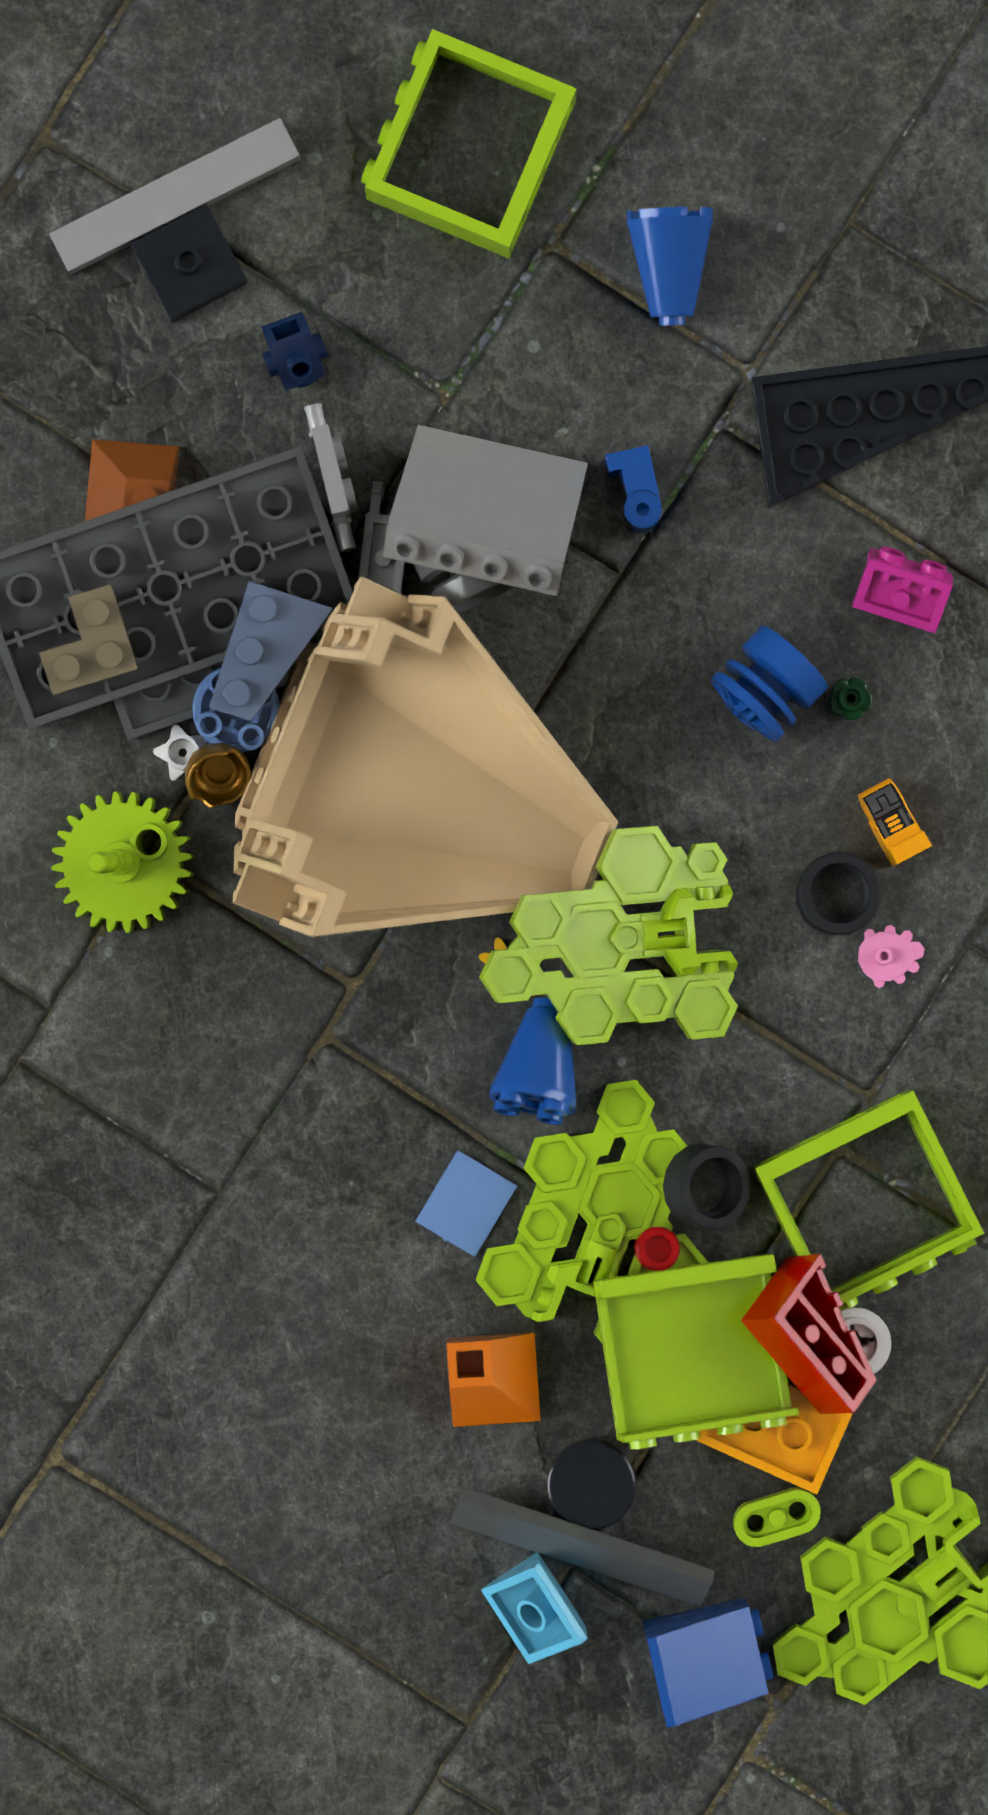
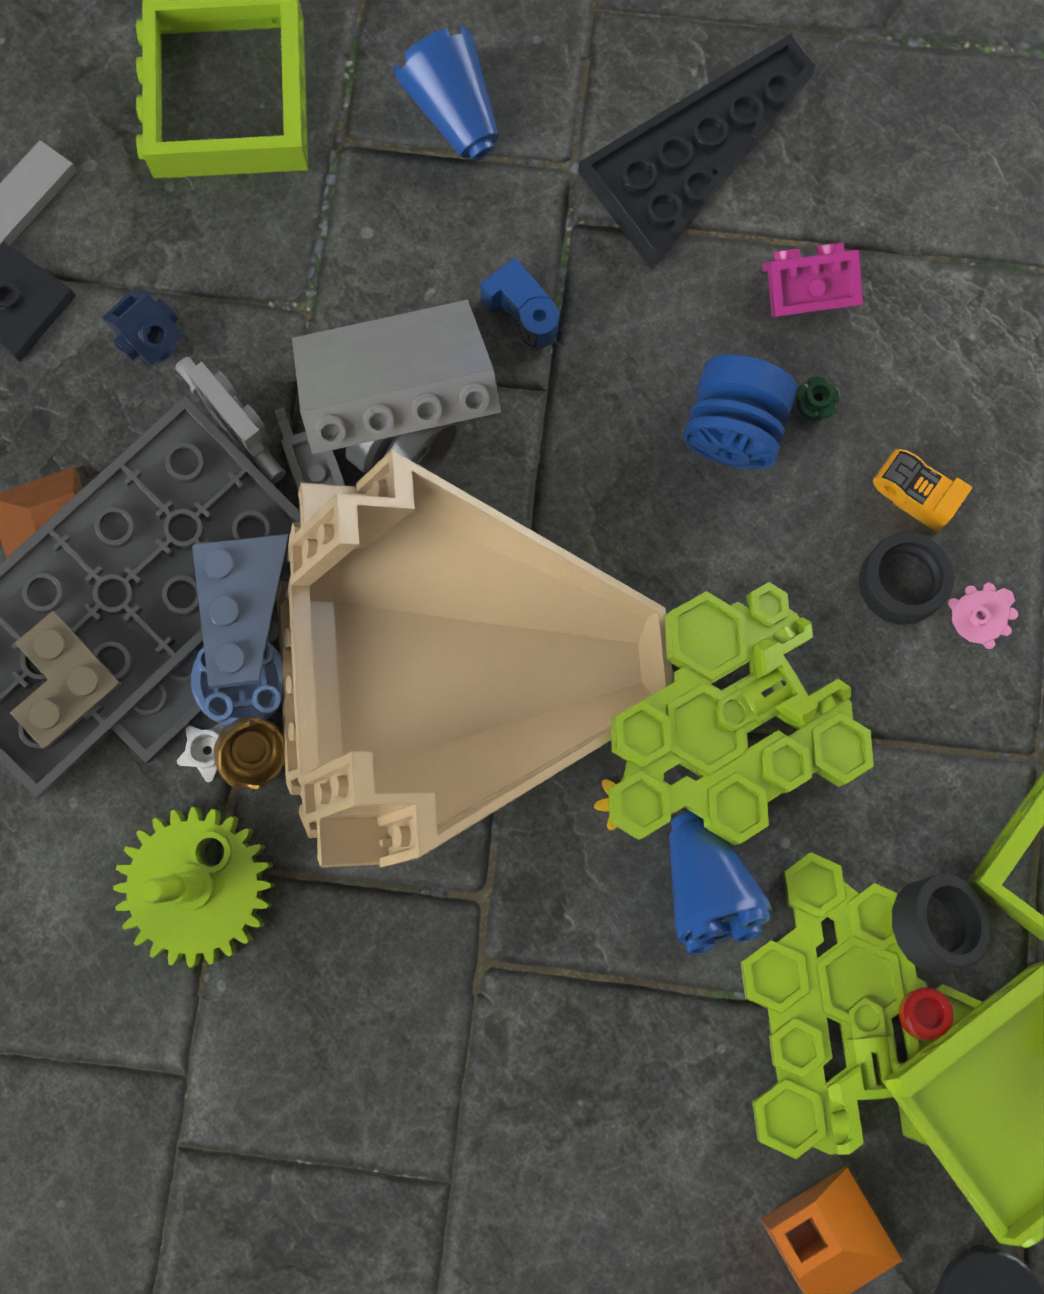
camera: 25 degrees left, 10 degrees down
(466, 1203) = (706, 1065): medium blue window -> none

